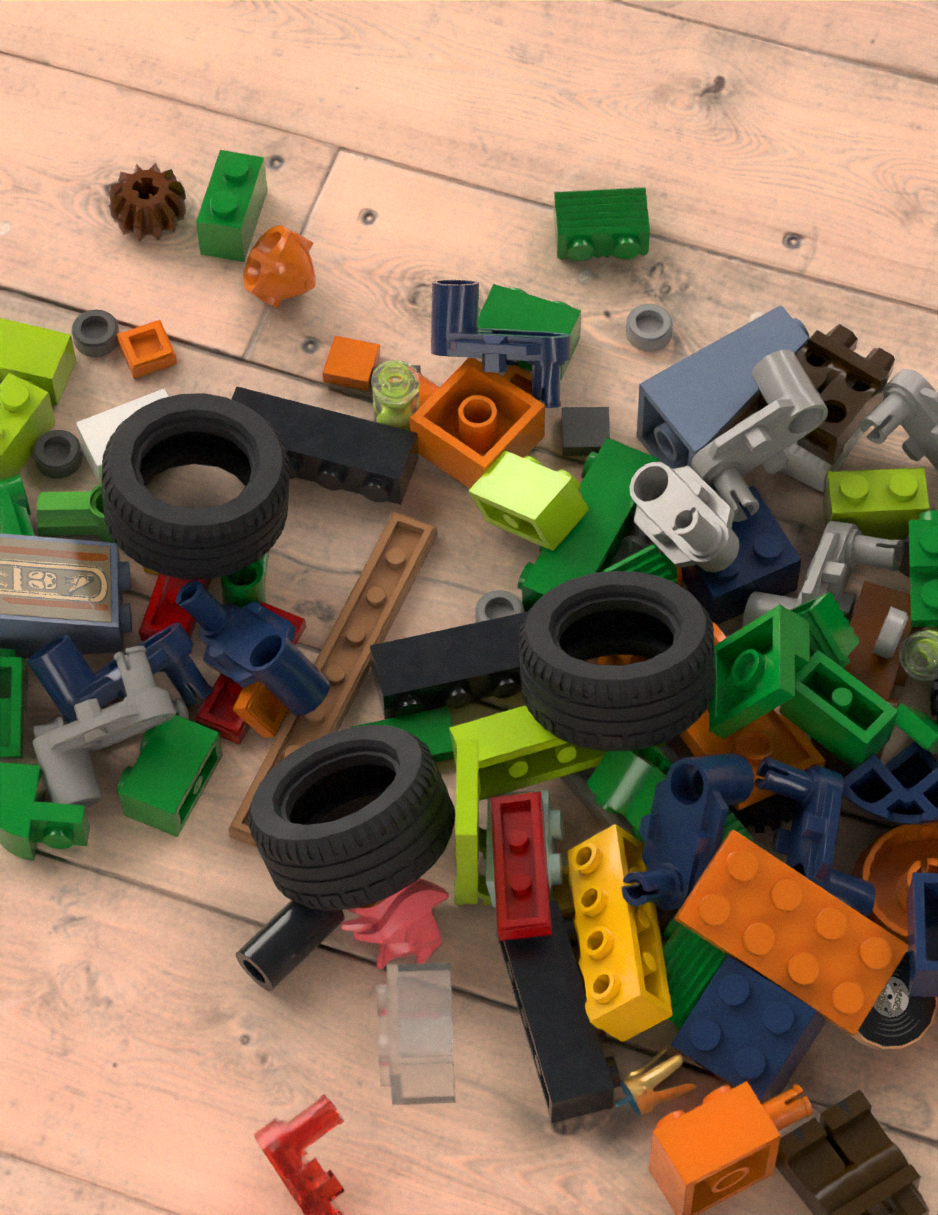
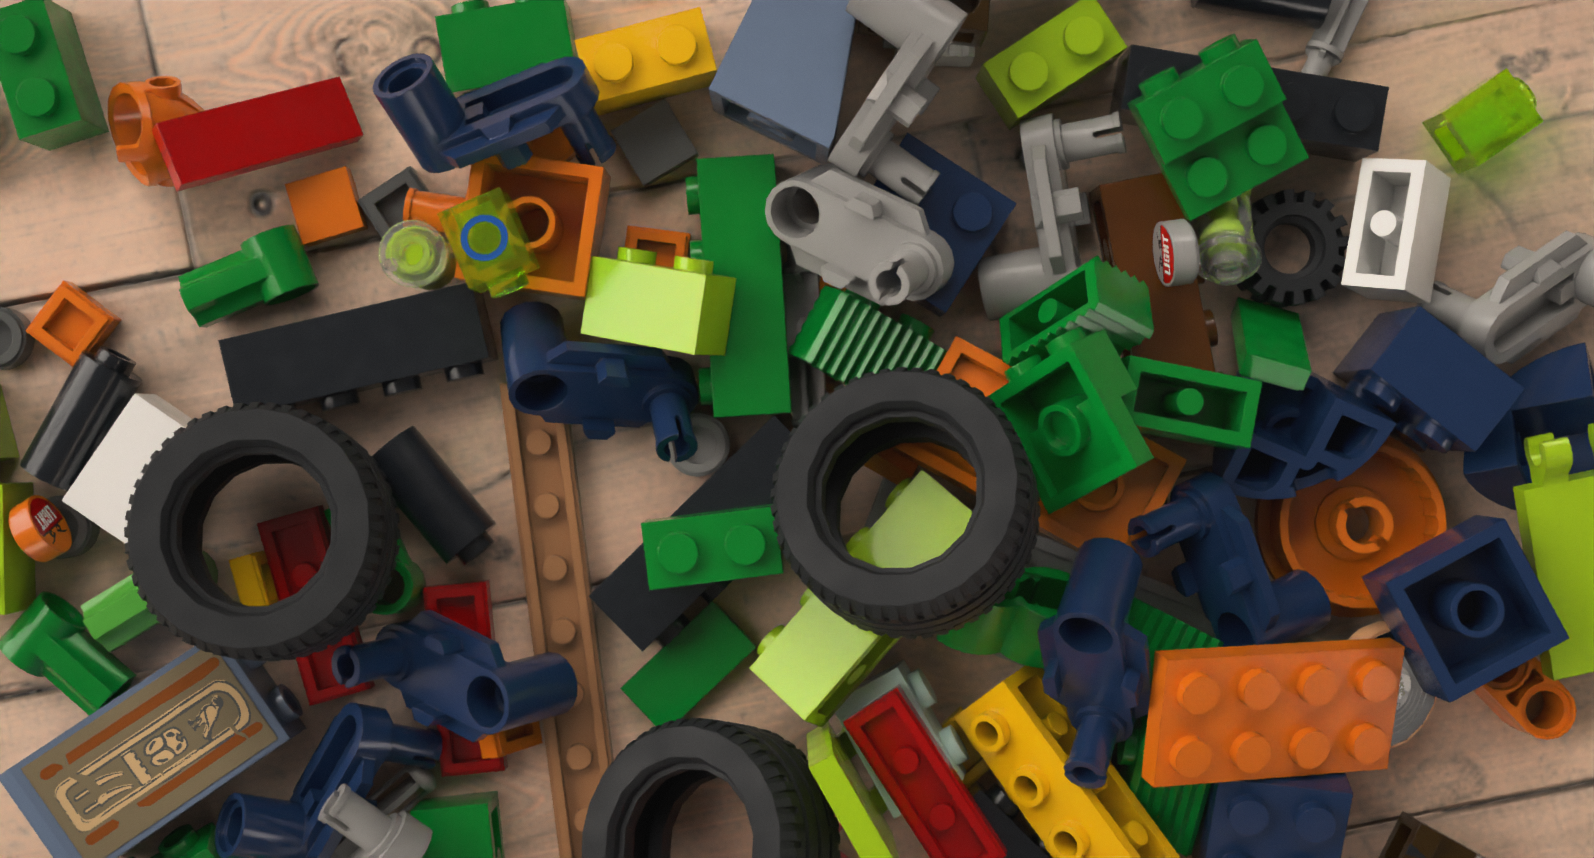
camera: 30 degrees left, 30 degrees up
(49, 433) = (39, 528): none -> orange tile
(116, 389) = (81, 416): none -> black brick
(289, 375) = (265, 271): none -> green piece
(307, 551) = (434, 498): none -> black brick
(341, 292) = (257, 133): none -> red tile
(447, 399) = (490, 243): none -> clear neon green brick
(460, 532) = (596, 381): none -> dark blue piece
(471, 642) = (711, 547): none -> green brick
(606, 375) = (649, 60): none -> yellow brick

